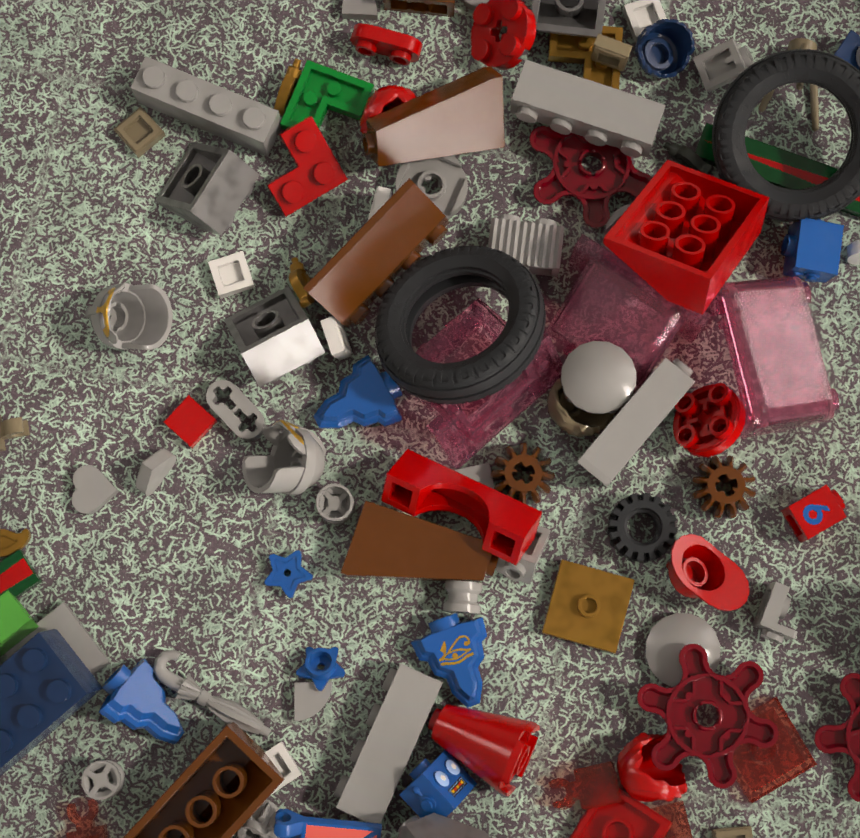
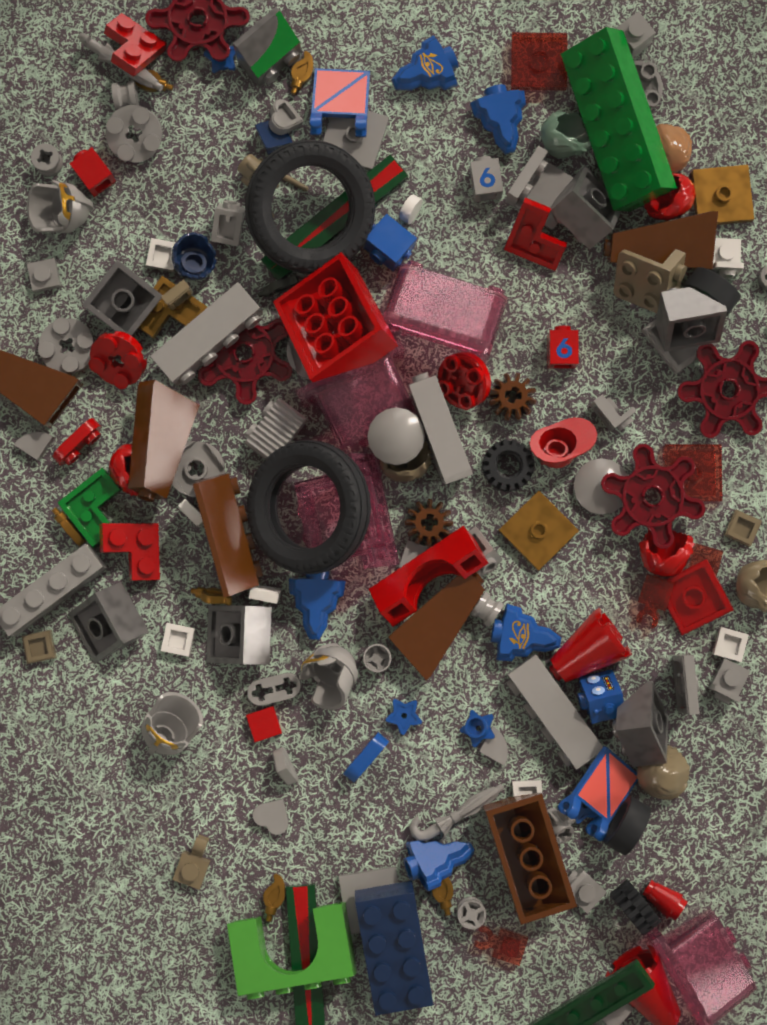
camera: 60 degrees left, 5 degrees up
(108, 735) = (444, 894): none -> pearl gold piece
(215, 555) = (365, 757): none -> blue beam

